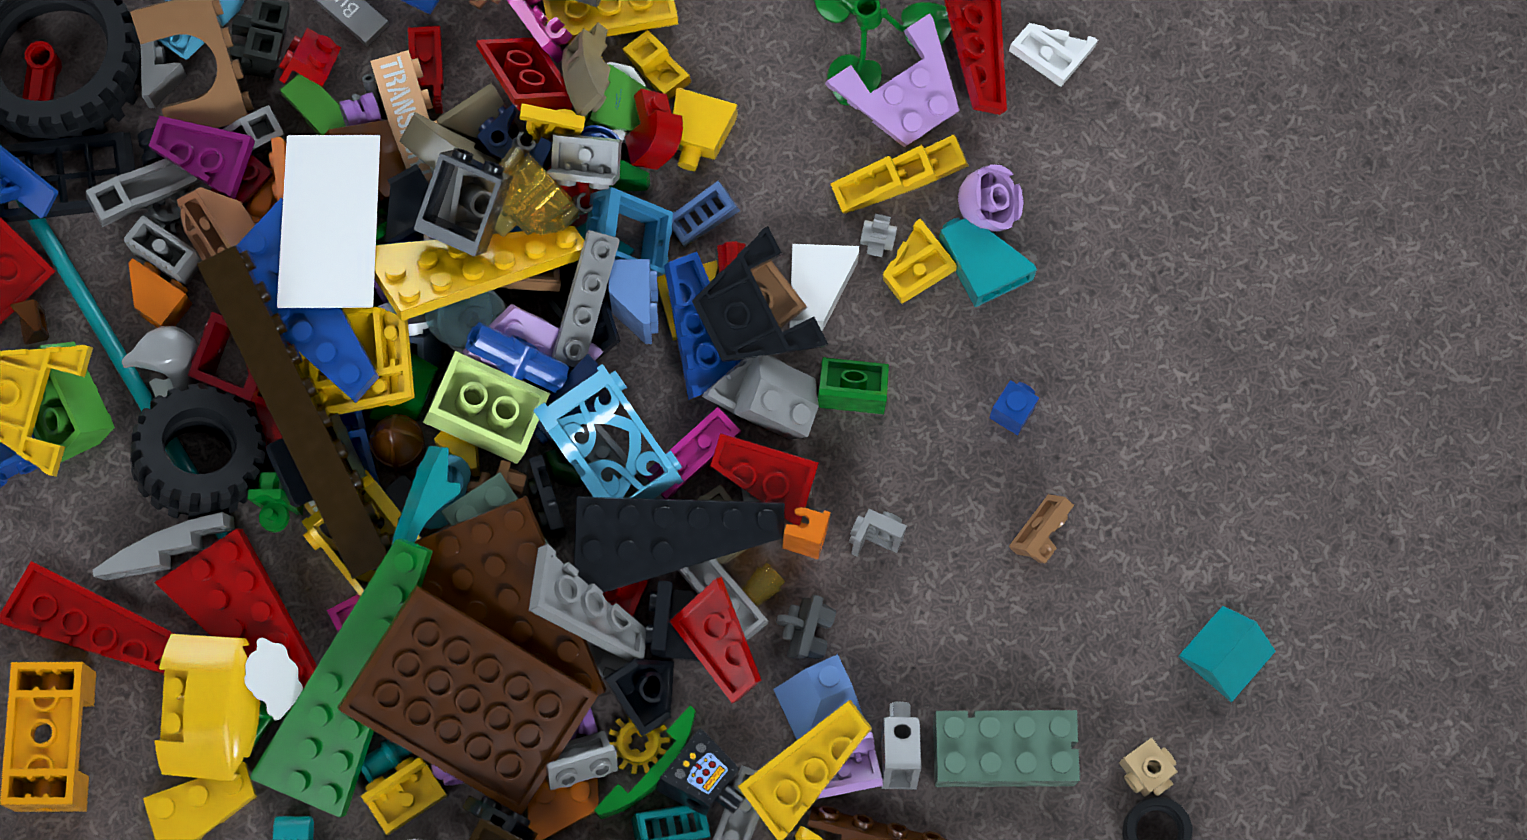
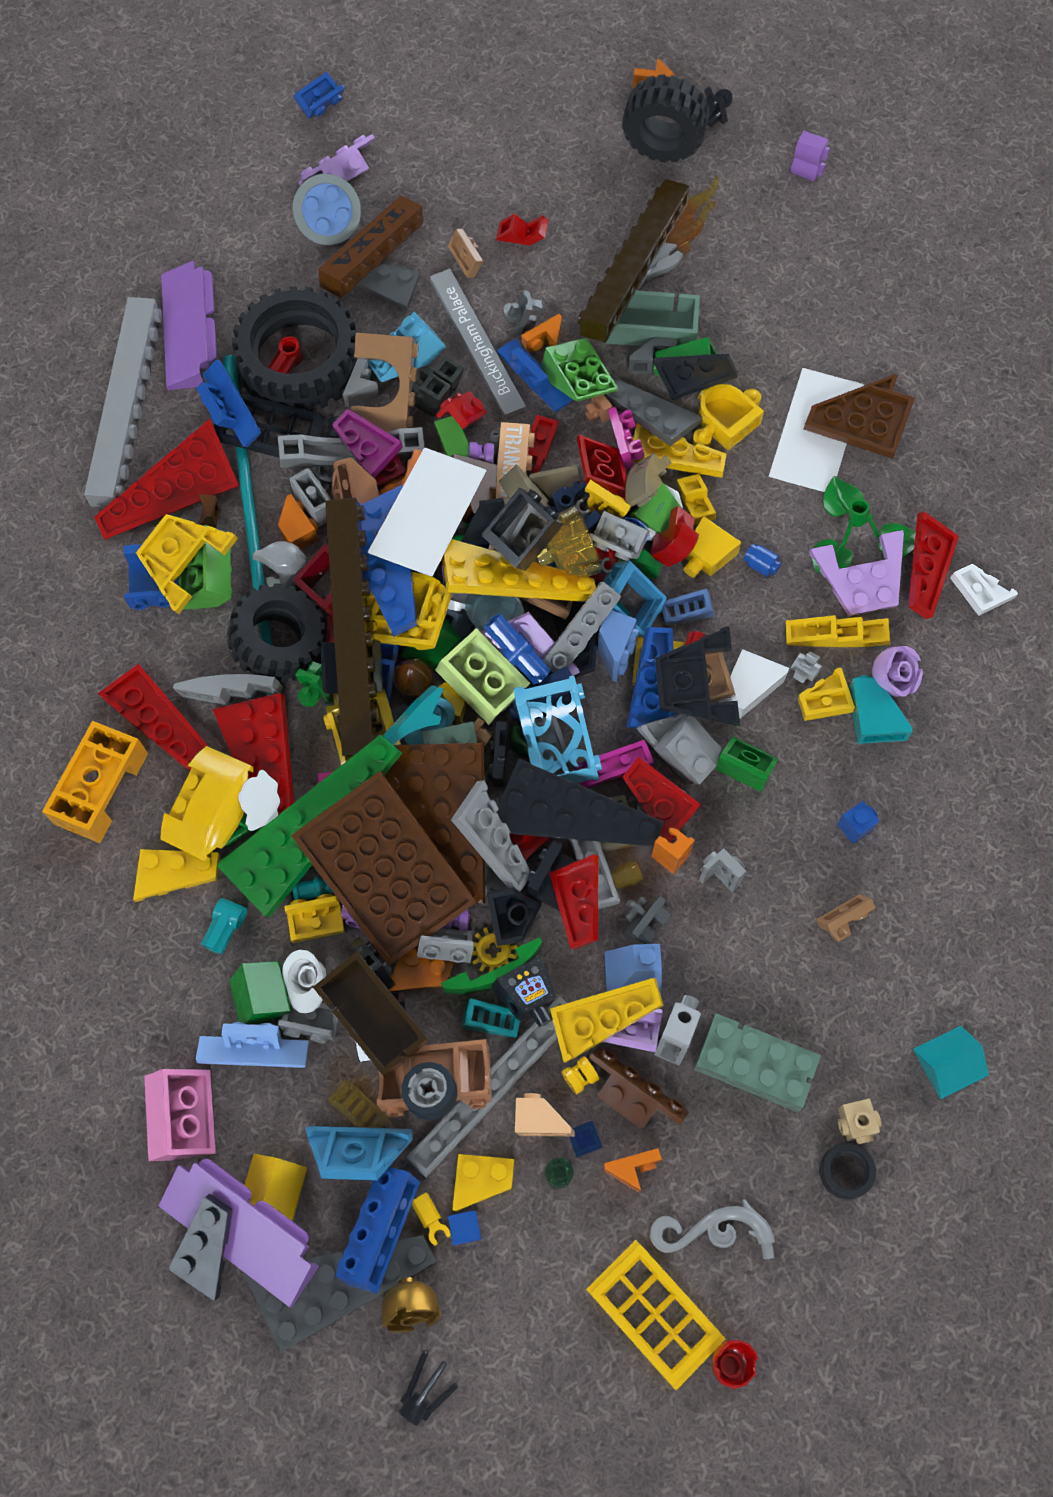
camera: 25 degrees right, 5 degrees down
(771, 115) = (762, 560): none -> blue brick

